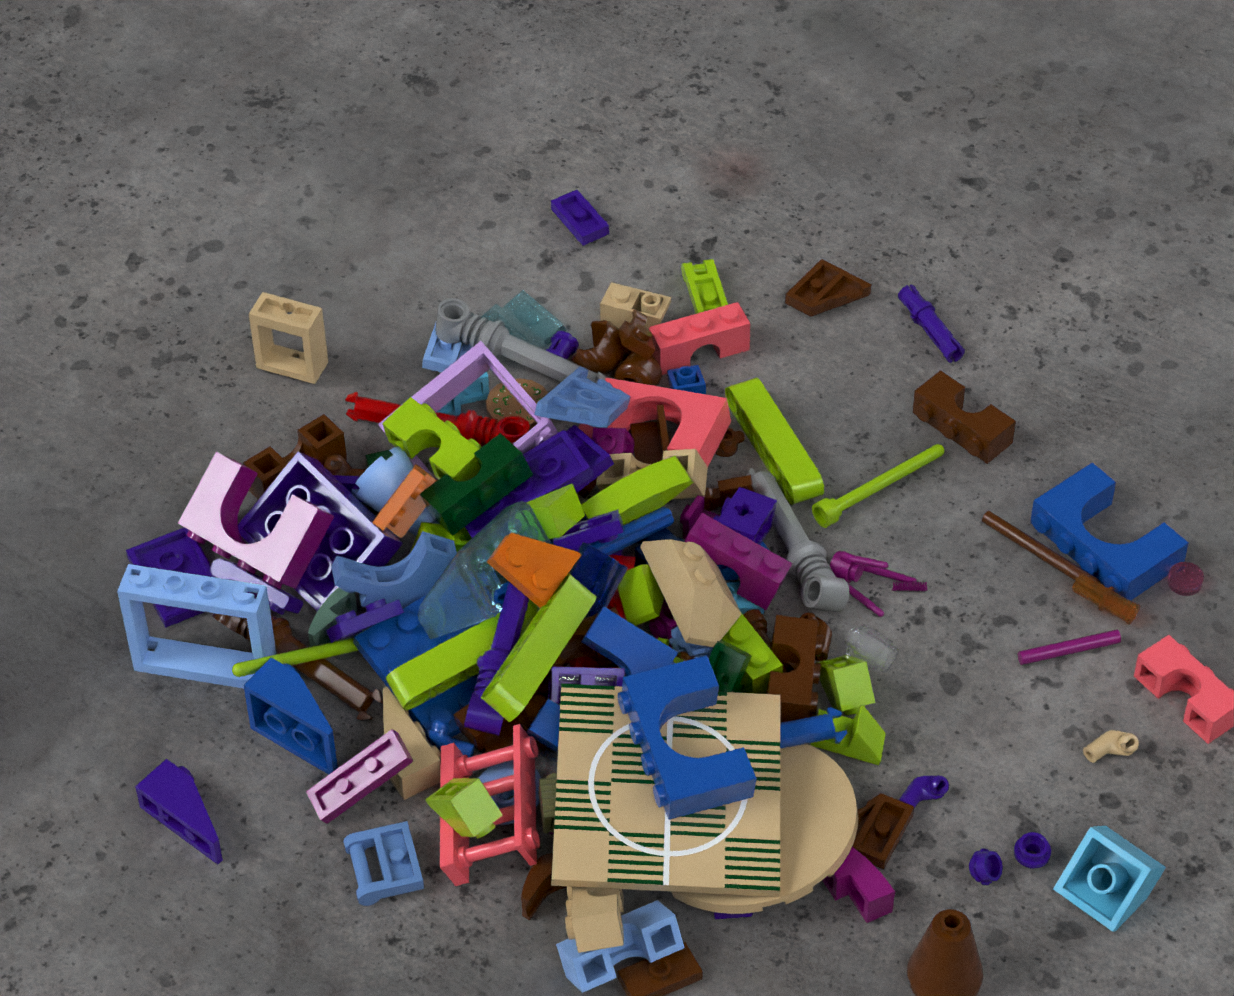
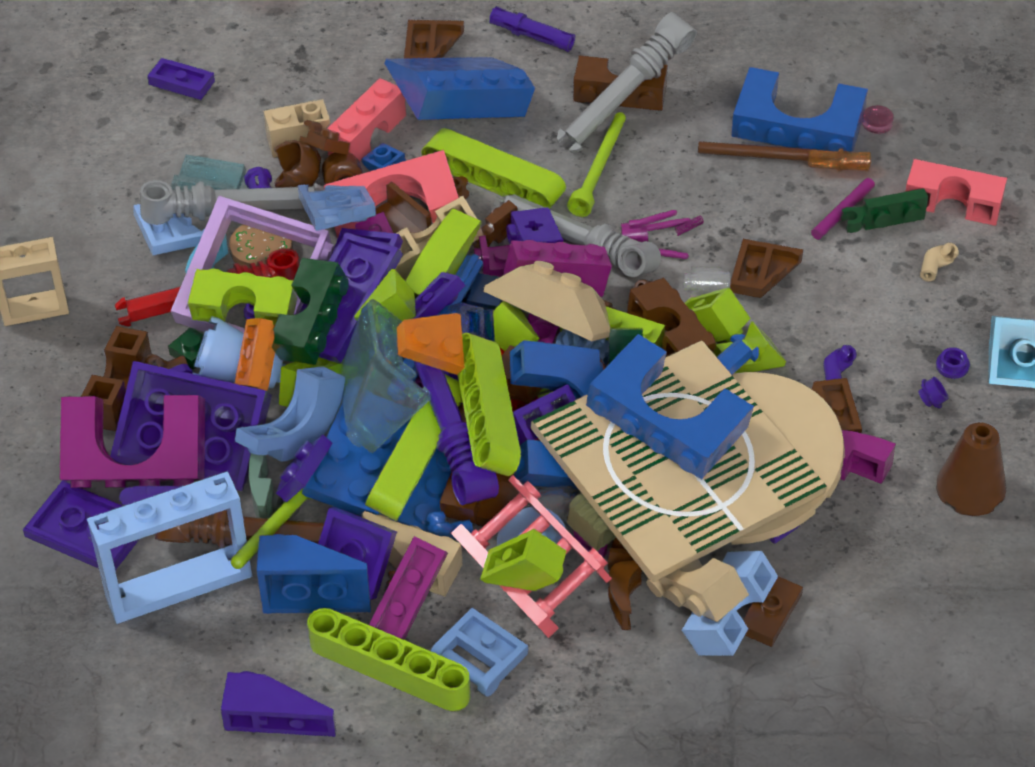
camera: 35 degrees left, 0 degrees up
(297, 807) = (401, 671): none -> lime beam
(353, 714) = (361, 541): none -> dark purple plate
(703, 285) = (332, 84): lime plate -> none
(806, 346) = (462, 87): none -> blue slope
(936, 661) = (762, 267): none -> reddish brown wing
(1026, 394) = (670, 38): none -> light grey piece
(1102, 671) = (886, 211): none -> dark green plate

